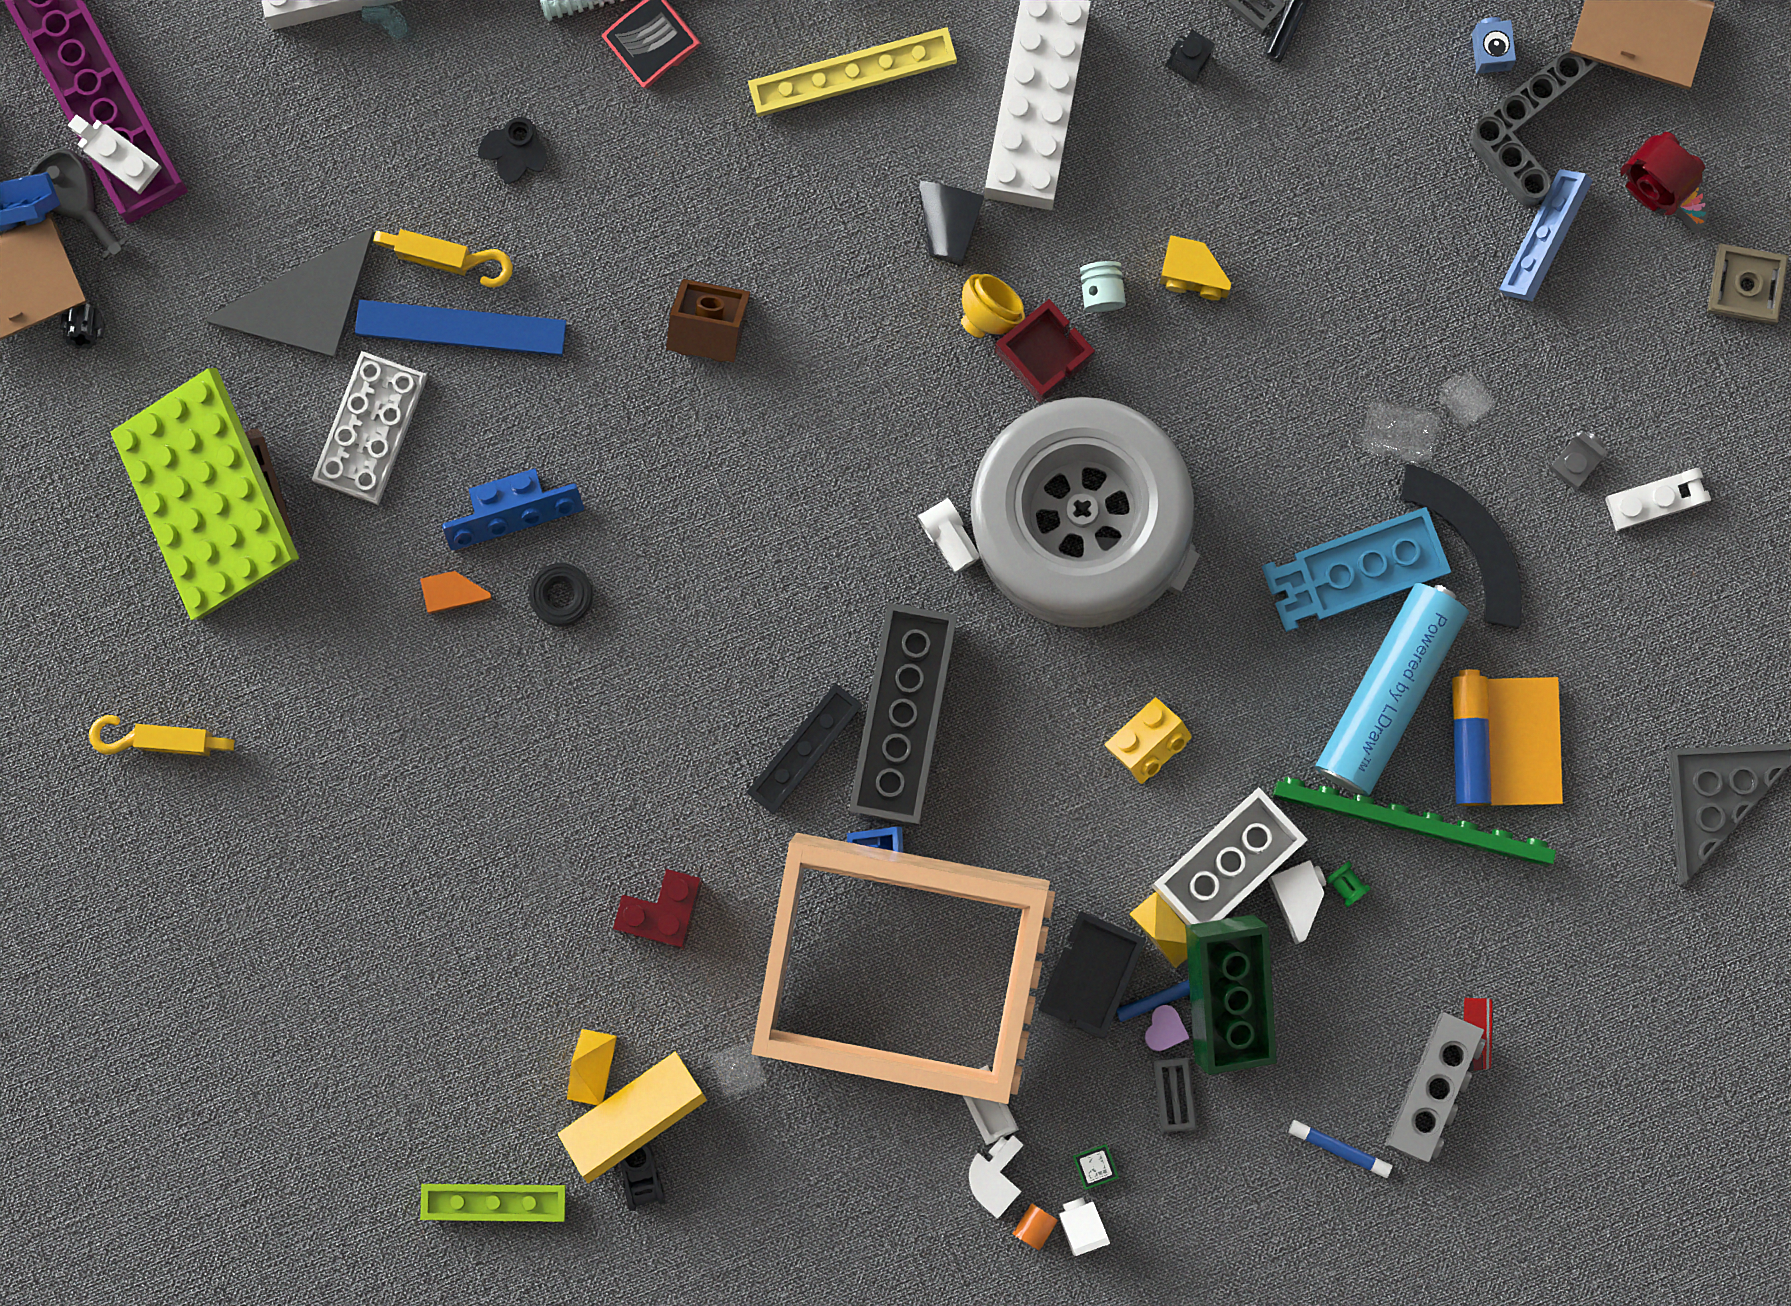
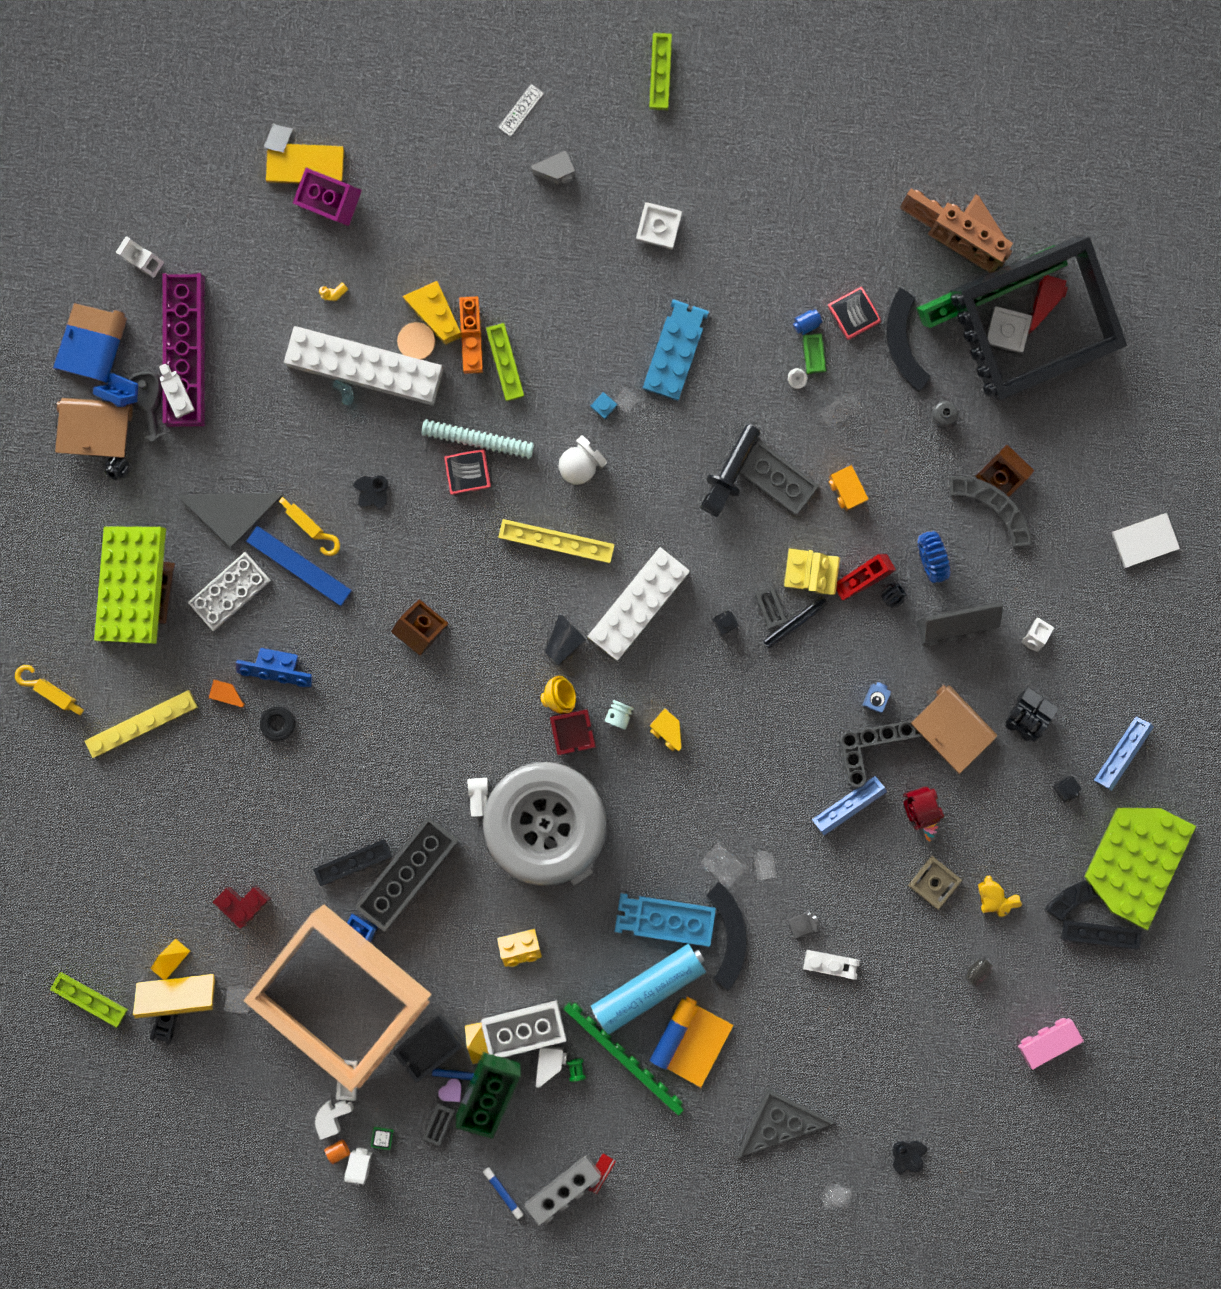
camera: 30 degrees right, 5 degrees up
(339, 714) = (141, 724): none -> light yellow plate

